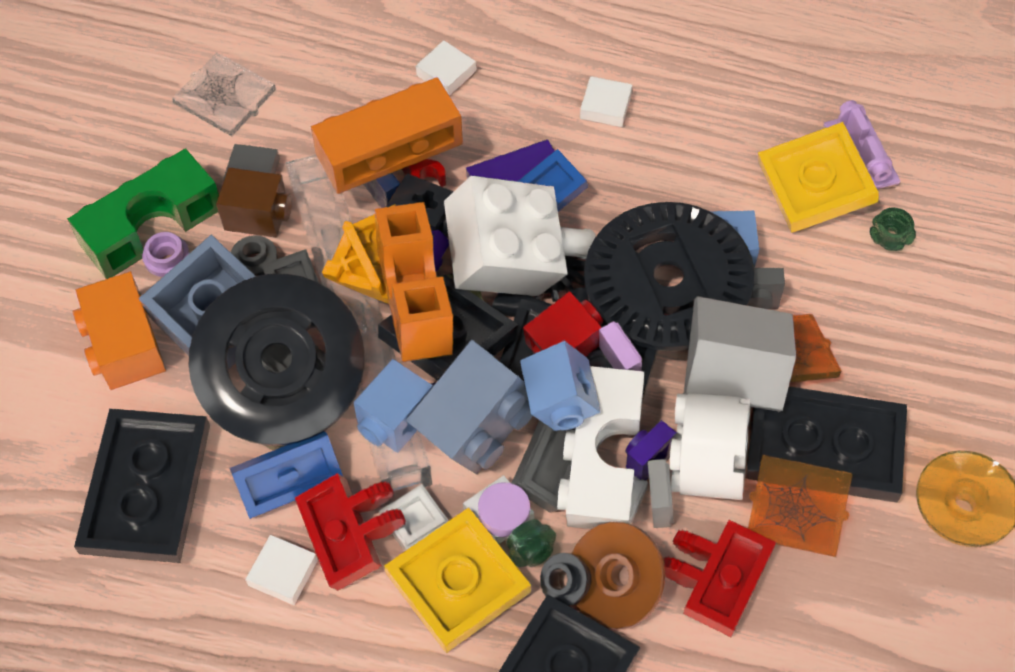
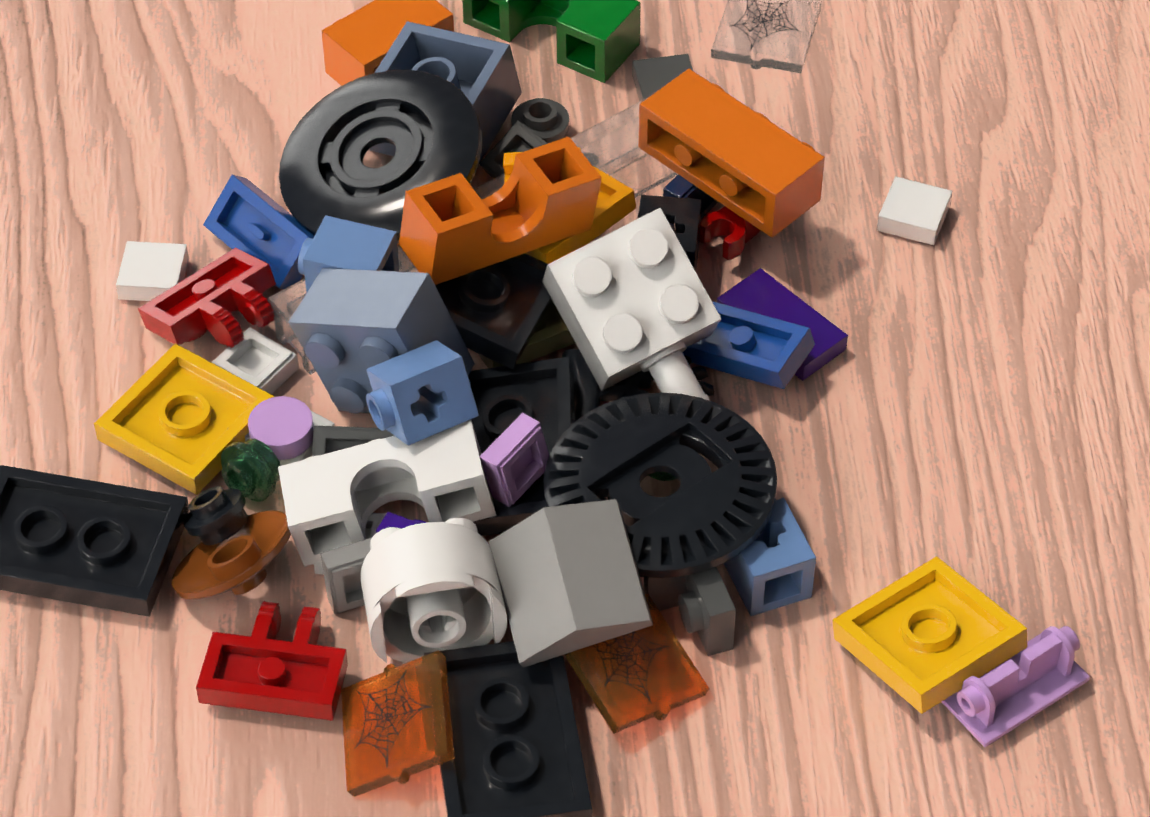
camera: 70 degrees right, 10 degrees down
(143, 486) = (207, 126): black plate -> none
(159, 246) = (521, 42): lavender plate -> none
(253, 202) = (605, 83): reddish brown brick -> none
(565, 321) = (519, 383): red brick -> none
(606, 101) = (949, 383): white tile -> none
(893, 220) = (895, 735): clear green plate -> none

